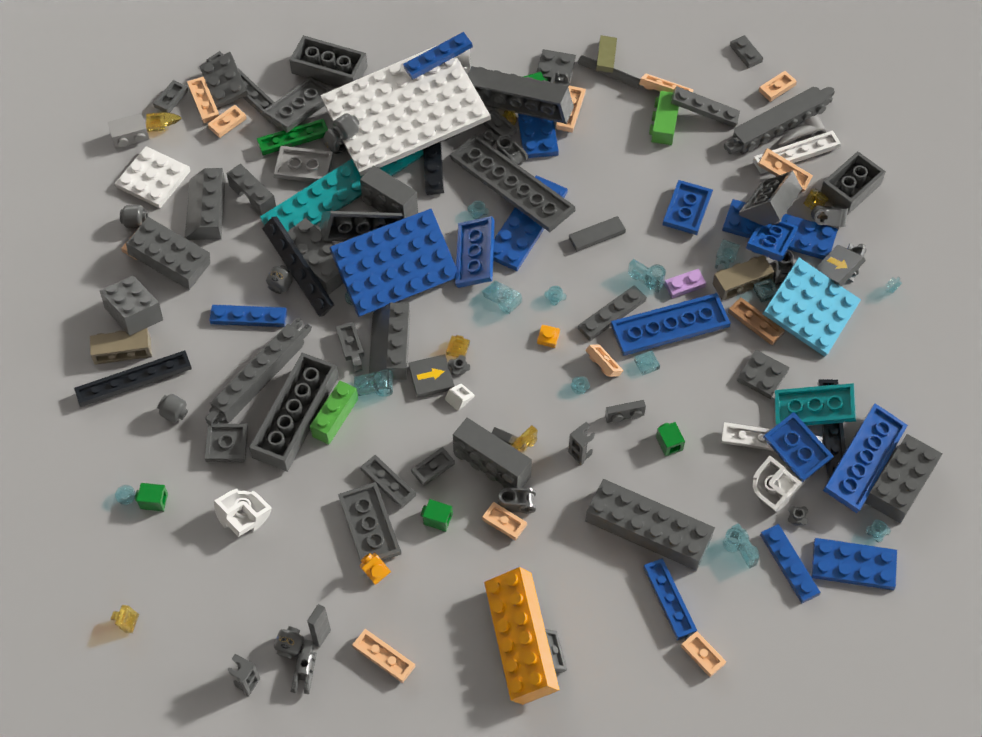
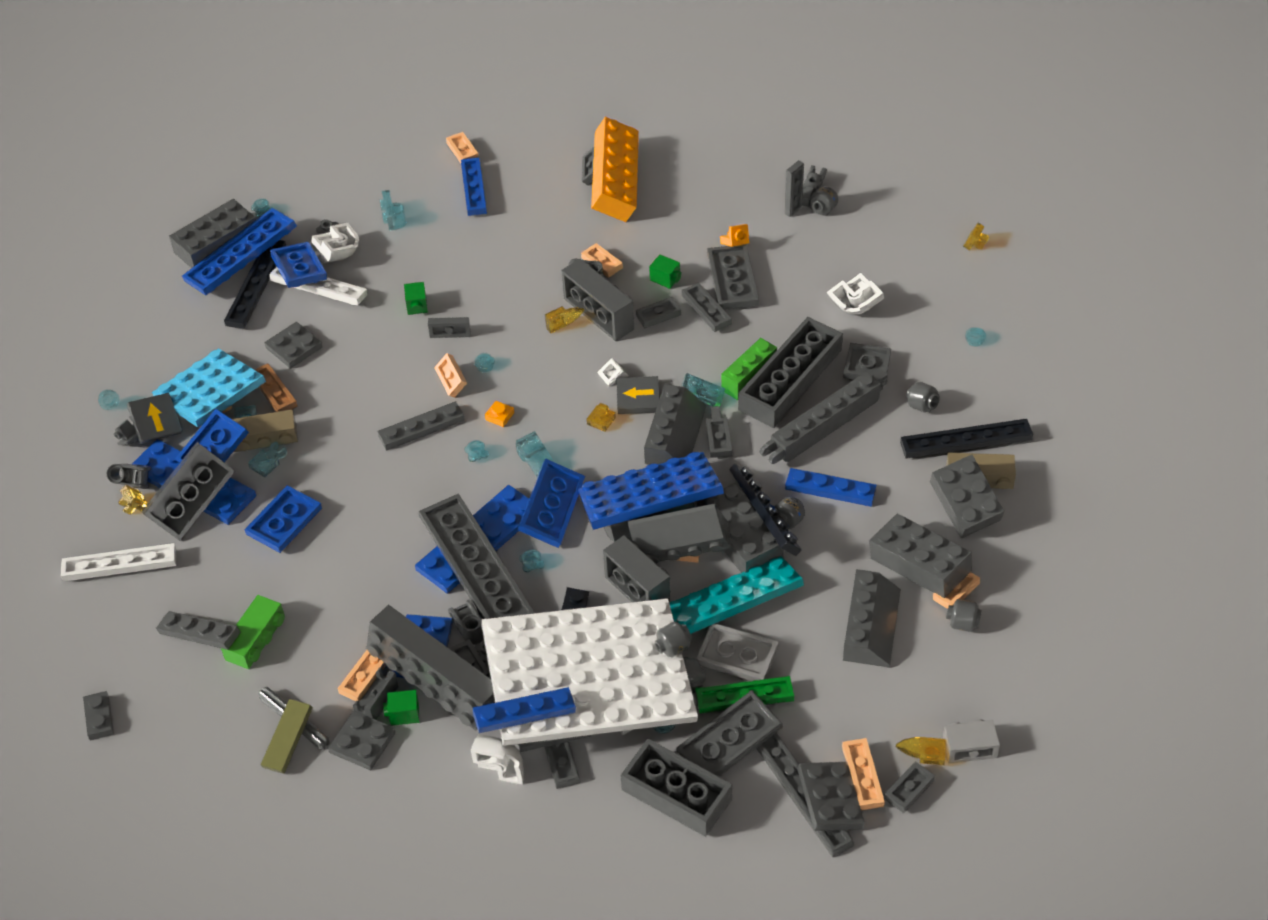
camera: 165 degrees left, 10 degrees down
(151, 497) = (948, 326): green brick -> none
(152, 177) = (939, 677): white plate -> none
(227, 121) = (832, 734): light nougat plate -> none
(245, 183) = (819, 634): dark grey arch -> none
(246, 674) = (865, 176): dark grey hinge -> none
(383, 655) = (740, 183): light nougat plate -> none
(459, 370) = (606, 397): dark grey plate -> none
(503, 435) = (578, 314): dark grey plate -> none
(578, 443) = (506, 297): dark grey hinge -> none
(597, 233) = (398, 510): dark grey tile -> none
(647, 275) = (361, 448): clear light blue plate -> none
(647, 362) = (406, 373): clear light blue plate -> none
(649, 524) = (468, 235): dark grey brick -> none
(654, 83) = (231, 674): light nougat plate -> none
(670, 324) = (364, 400): blue plate -> none
(685, 283) = (327, 442): lavender plate -> none
(777, 86) = (89, 652): light nougat plate -> none
(778, 165) = (148, 533): light nougat plate -> none
(779, 119) = (114, 604): dark grey hinge -> none
(790, 563) = (354, 199): blue plate -> none
(811, 128) = (95, 583): light grey piece -> none
(817, 404) = (261, 295): teal plate -> none
(853, 182) = (81, 504): dark grey brick -> none
(854, 564) = (298, 190): blue plate -> none

